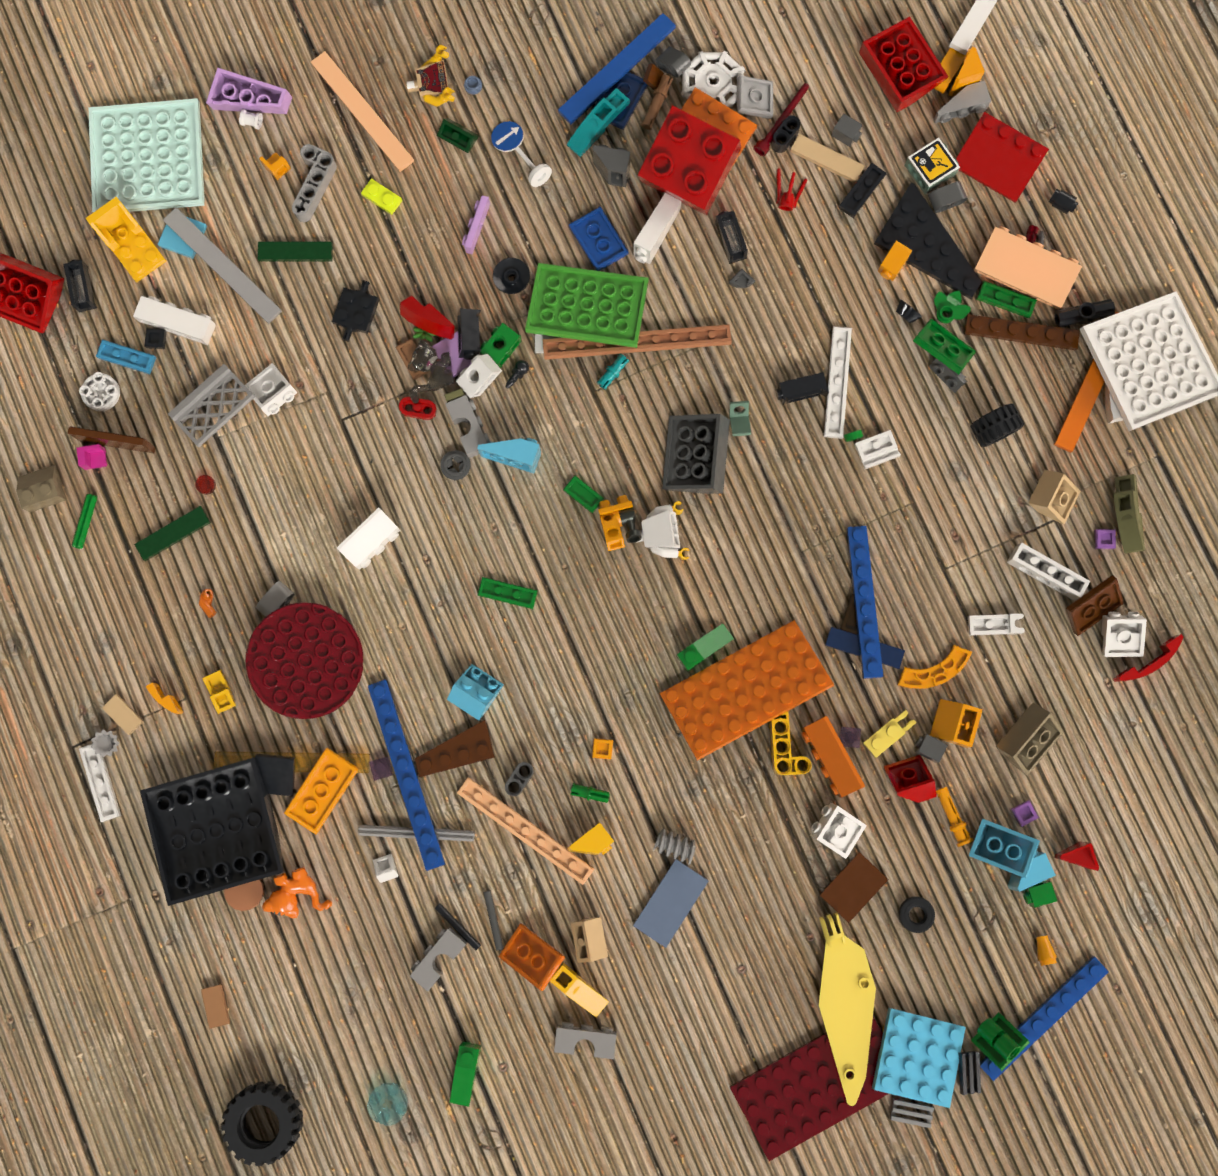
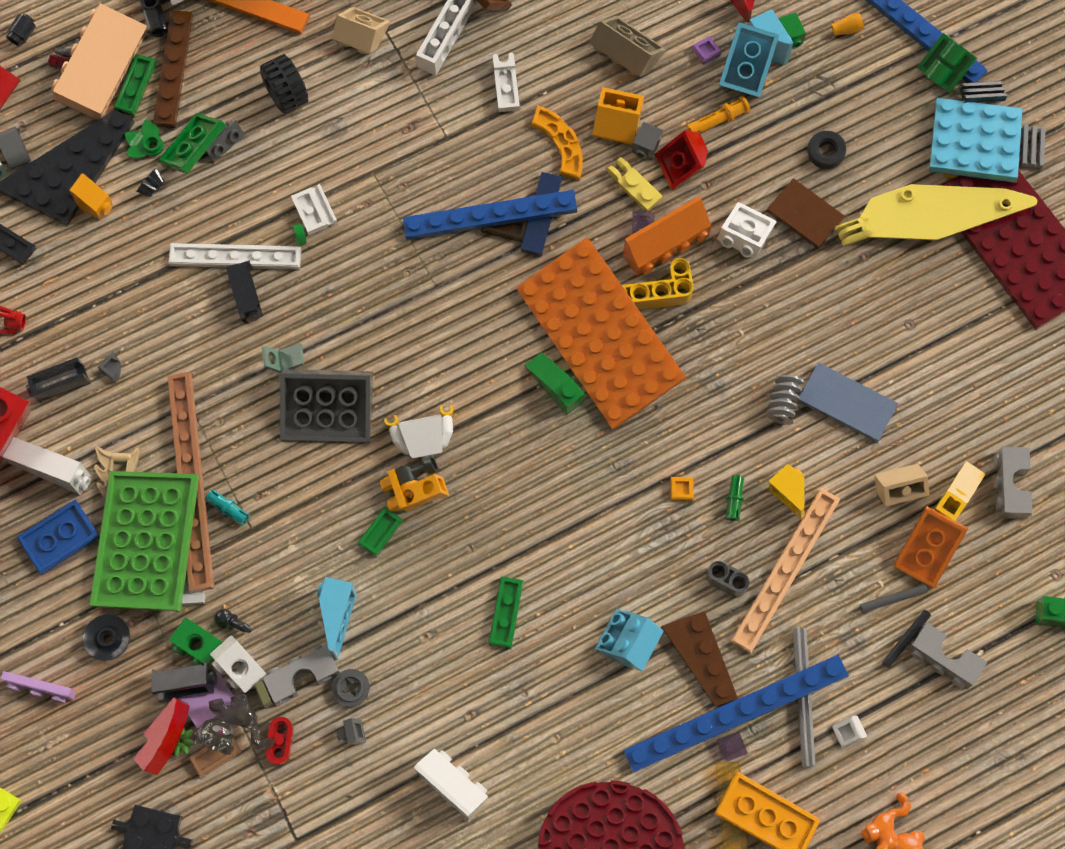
camera: 100 degrees left, 10 degrees down
(418, 465) = (352, 732): none -> dark grey tile
(659, 277) = (108, 459): none -> tan piece

